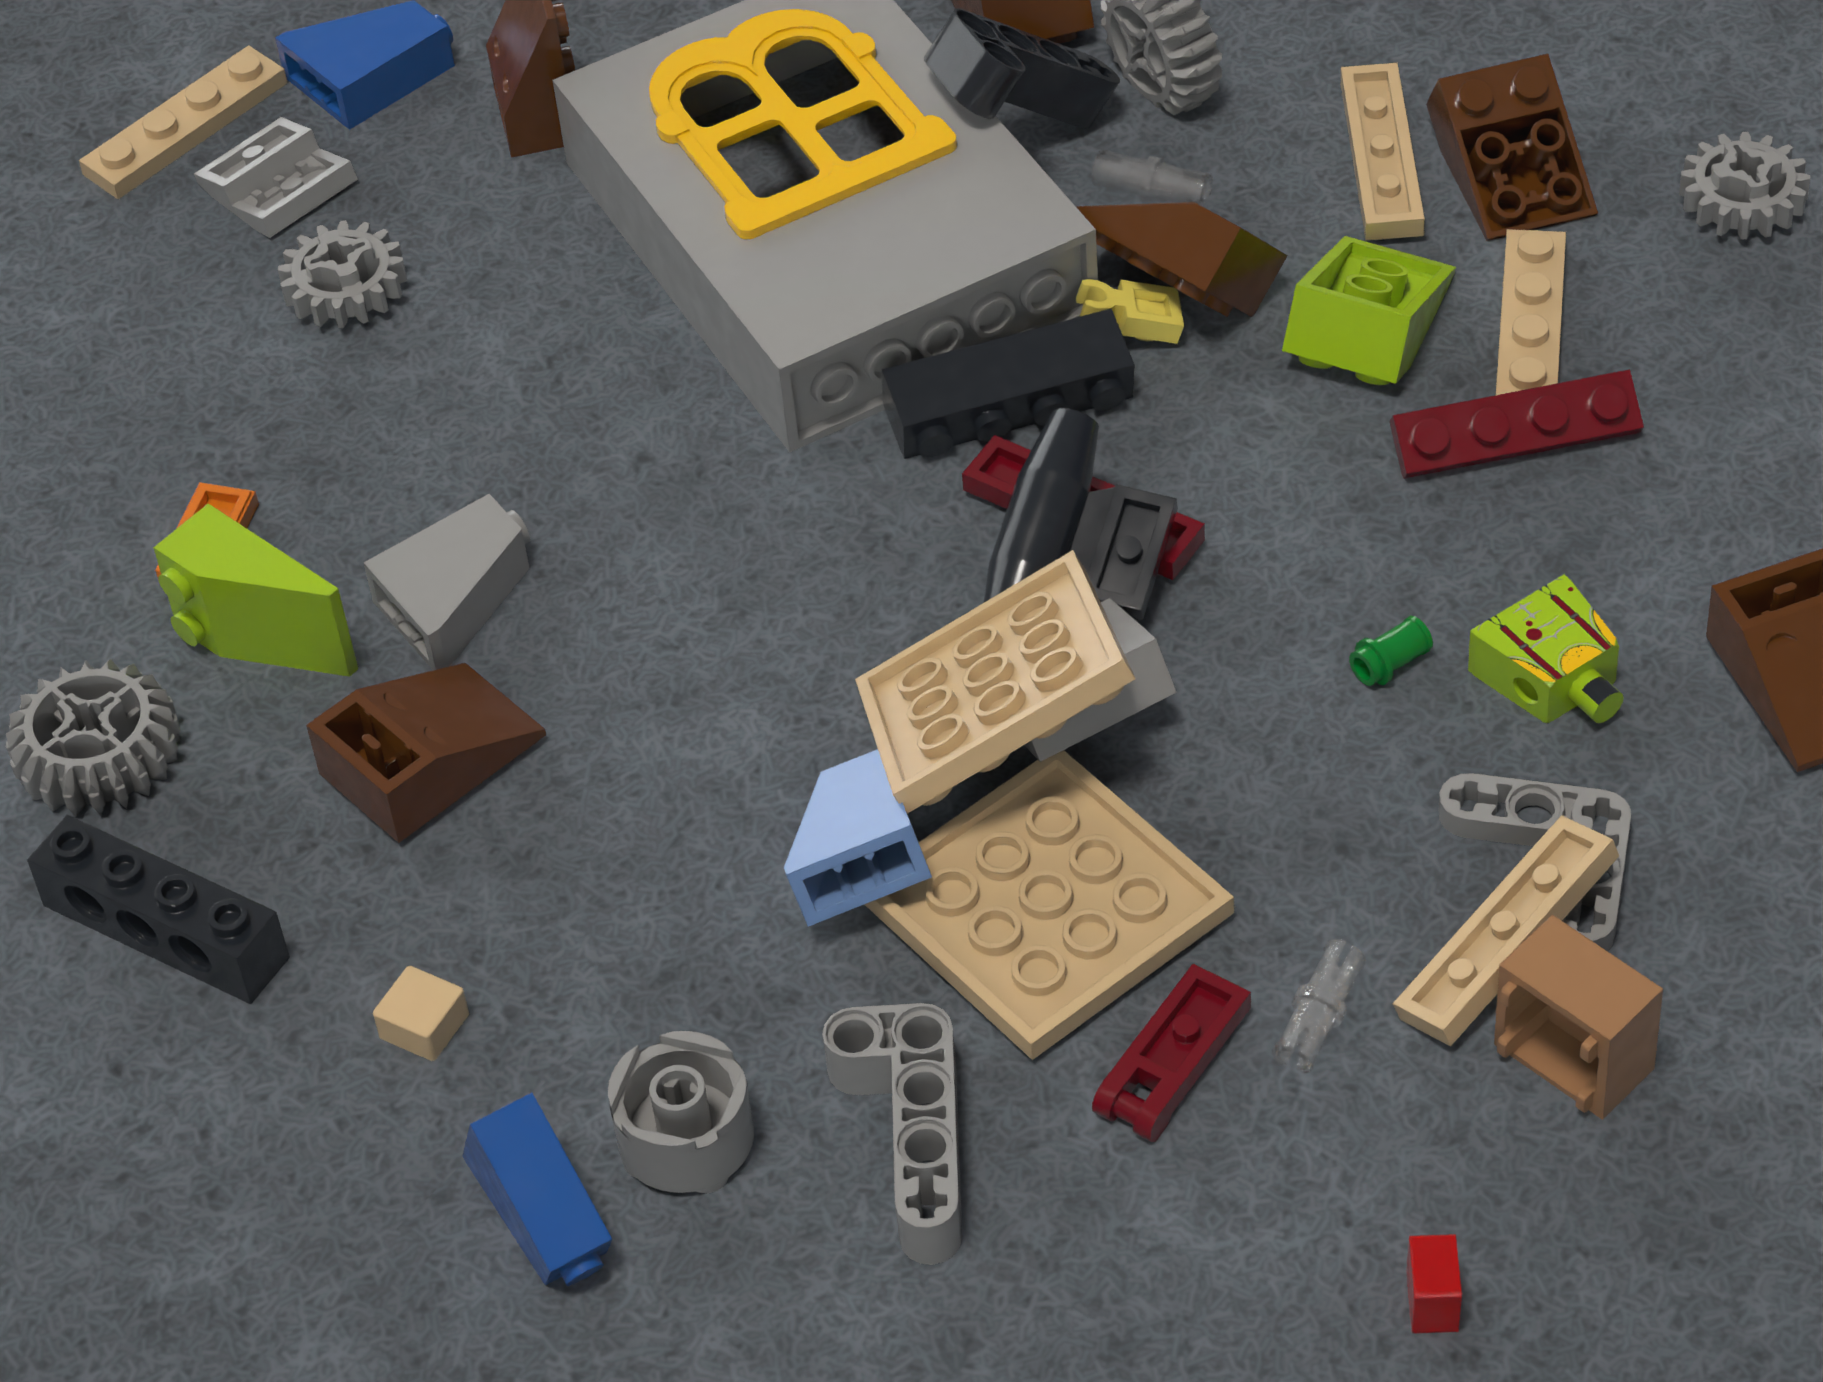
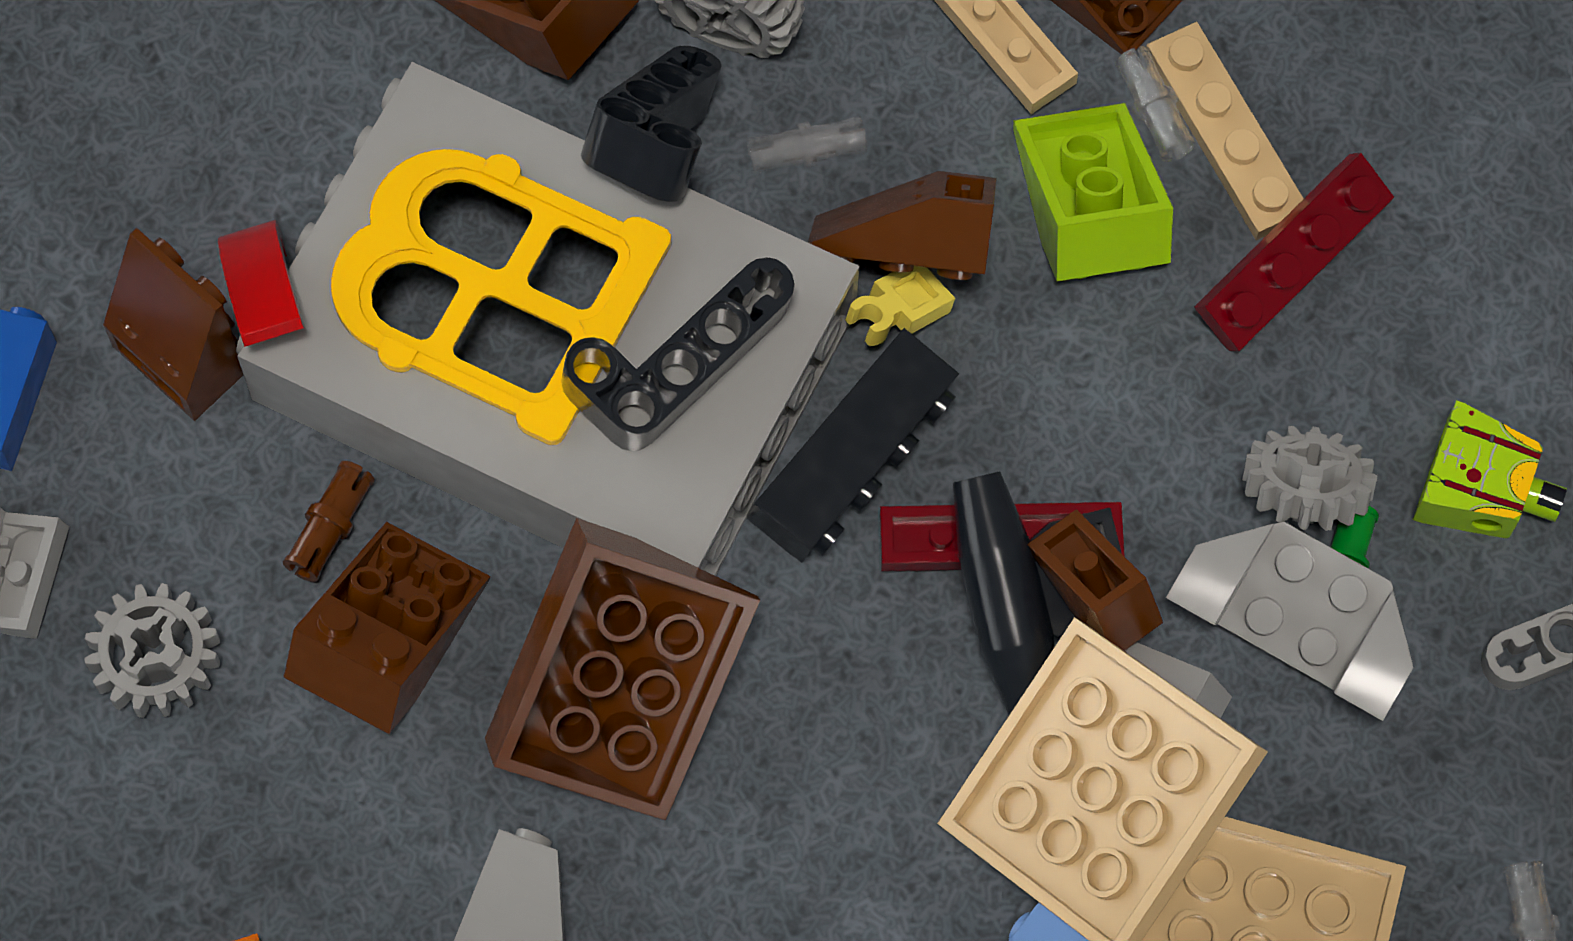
camera: 40 degrees left, 20 degrees up
(525, 338) = (383, 627): none -> reddish brown slope
(549, 255) = (328, 521): none -> reddish brown pin
(605, 40) = (259, 282): none -> red slope
(667, 421) = (619, 671): none -> reddish brown slope
(890, 213) = (686, 347): none -> black beam
(1115, 542) = (1097, 581): none -> reddish brown slope
(1289, 651) = (1303, 609): none -> light grey piece
(1385, 576) = (1309, 478): none -> light grey gear
(1478, 273) = (1155, 104): none -> clear pin

